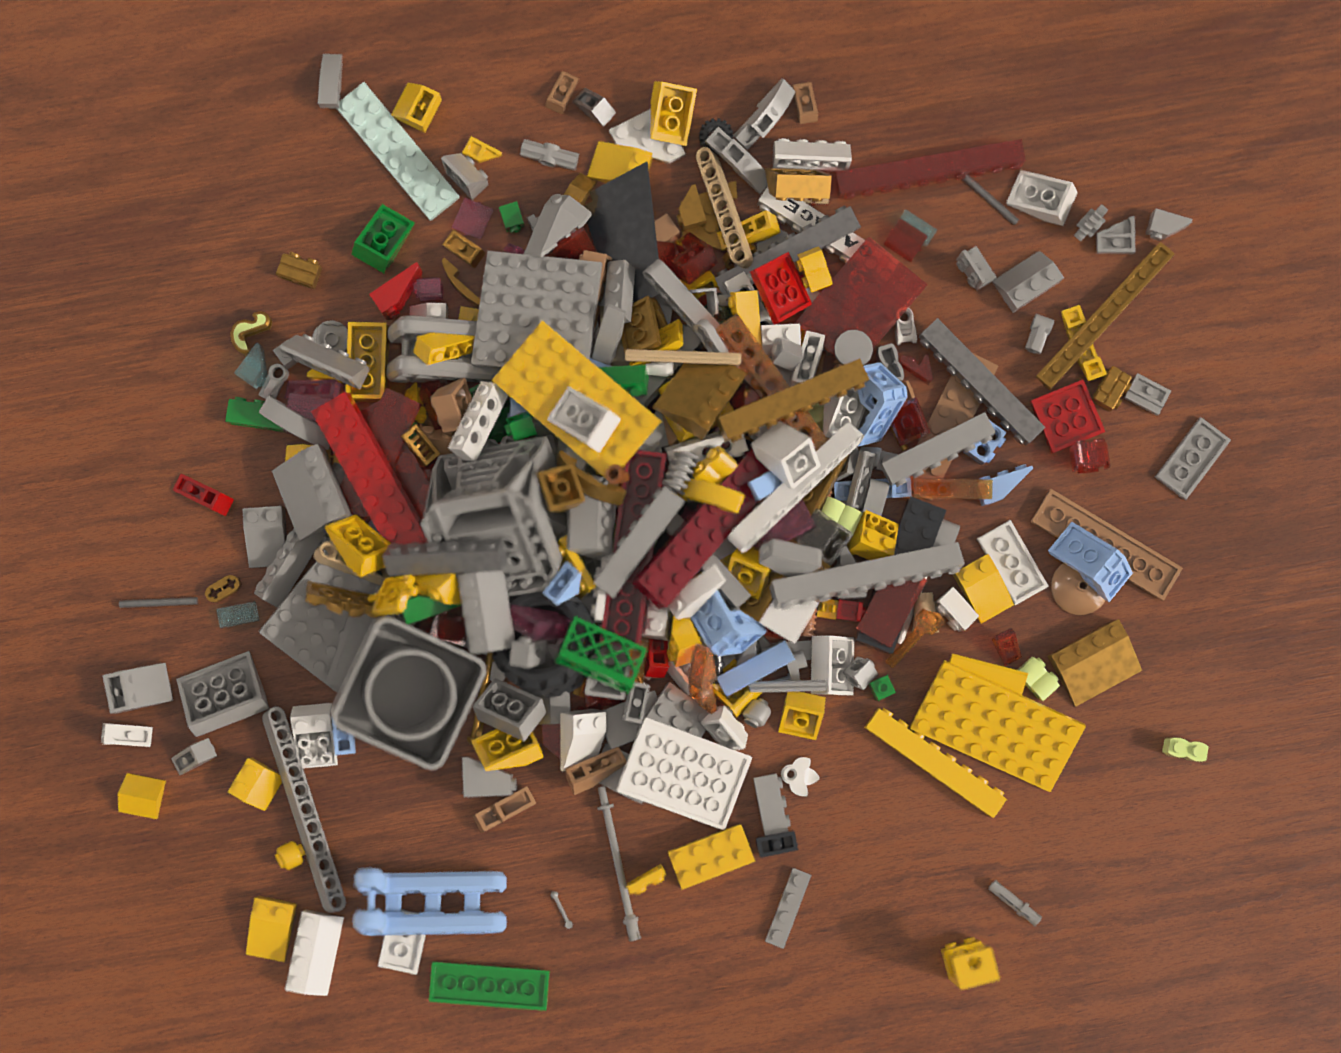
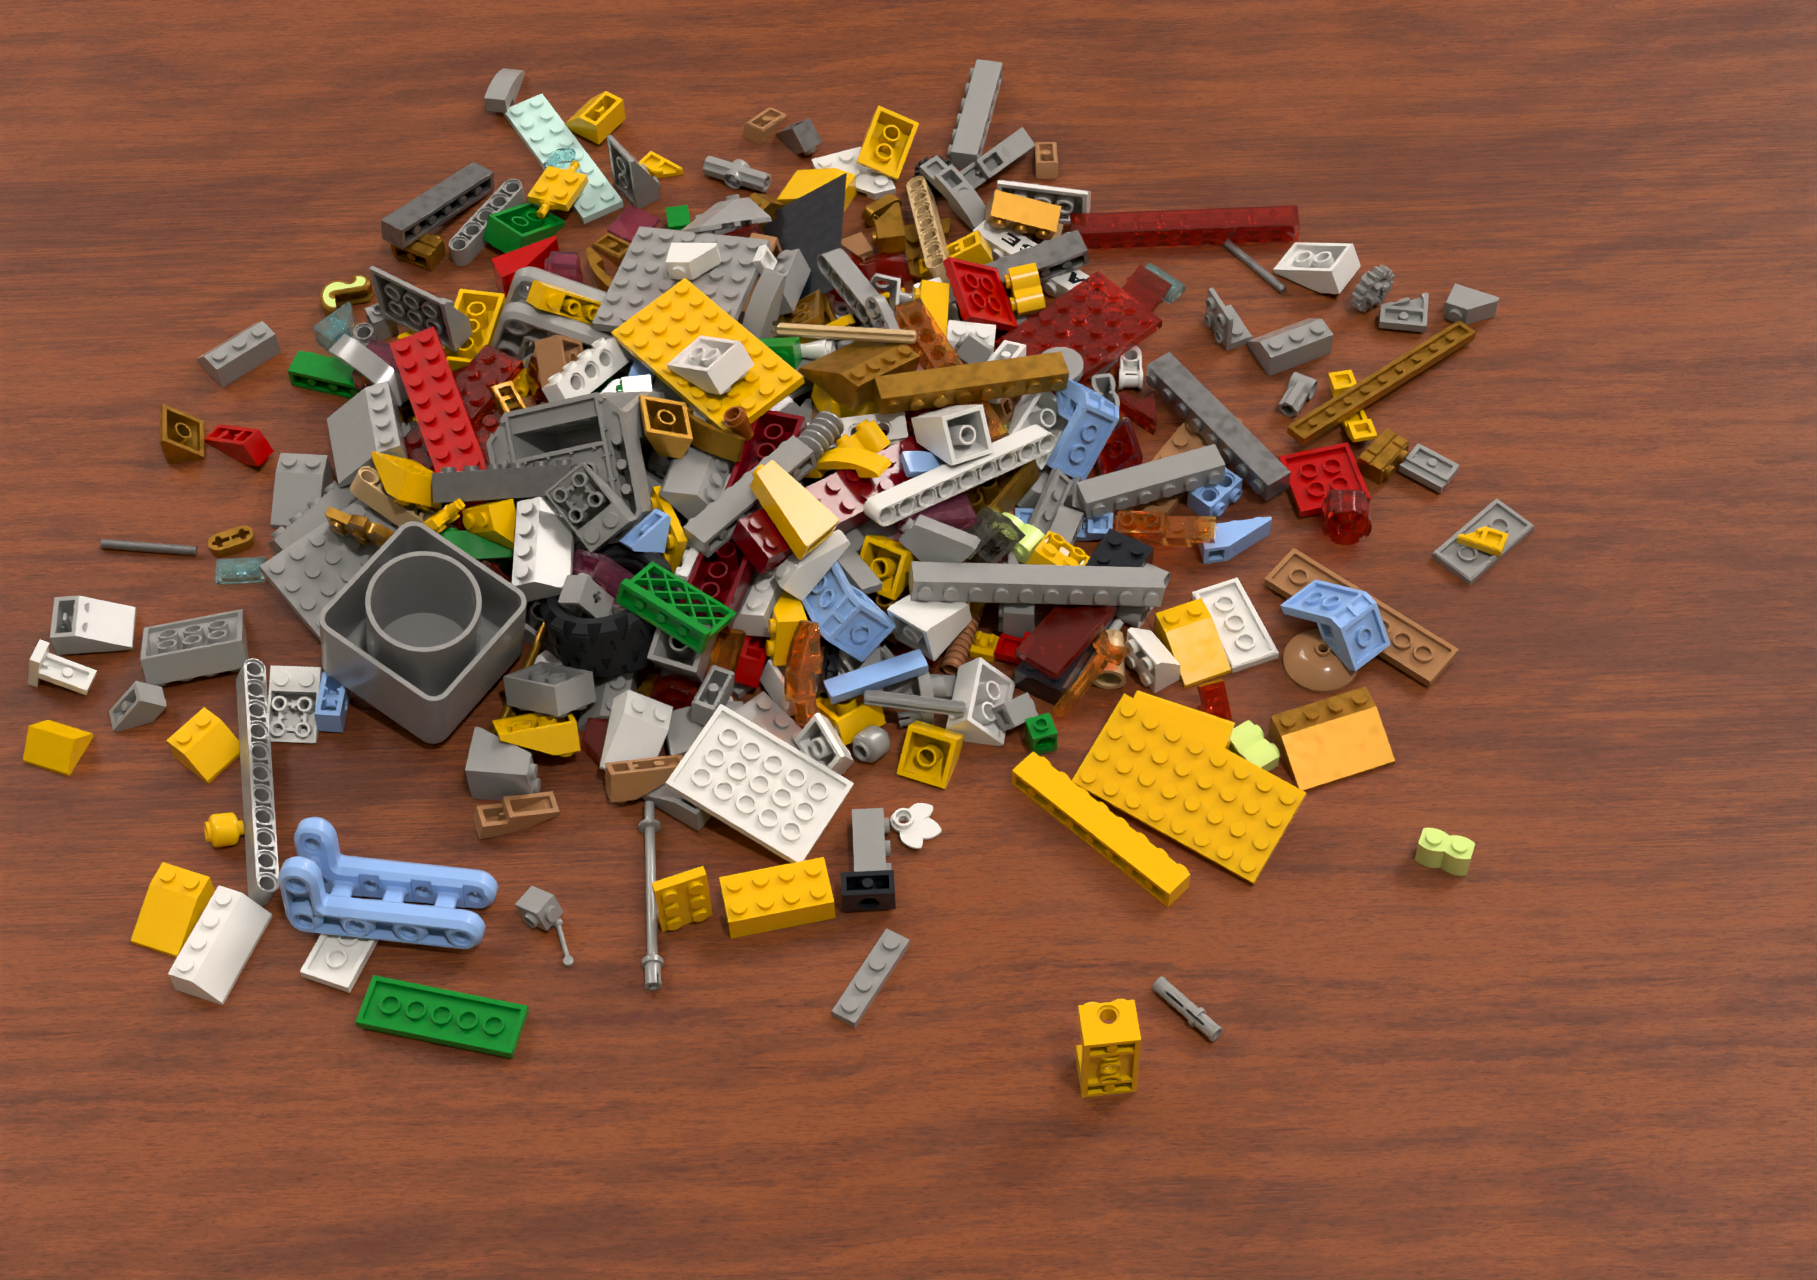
camera: 20 degrees right, 30 degrees down
(154, 493) = (181, 435): none -> pearl gold slope
(176, 399) = (240, 353): none -> light grey slope
(306, 230) = (437, 205): none -> flat silver brick
(349, 226) = (469, 239): none -> light grey beam
(397, 159) = (560, 156): none -> clear light blue arm
(403, 195) = (557, 189): none -> yellow plate
(520, 580) = (590, 507): none -> light grey slope
(540, 891) = (539, 908): none -> light grey brick
(542, 299) = (691, 259): none -> white slope
(601, 284) = (764, 259): none -> white tile
(677, 180) = (878, 208): none -> pearl gold beam
(680, 566) = (792, 509): none -> yellow slope
(740, 62) = (976, 113): none -> light grey brick
(1196, 461) = (1485, 540): none -> yellow tile

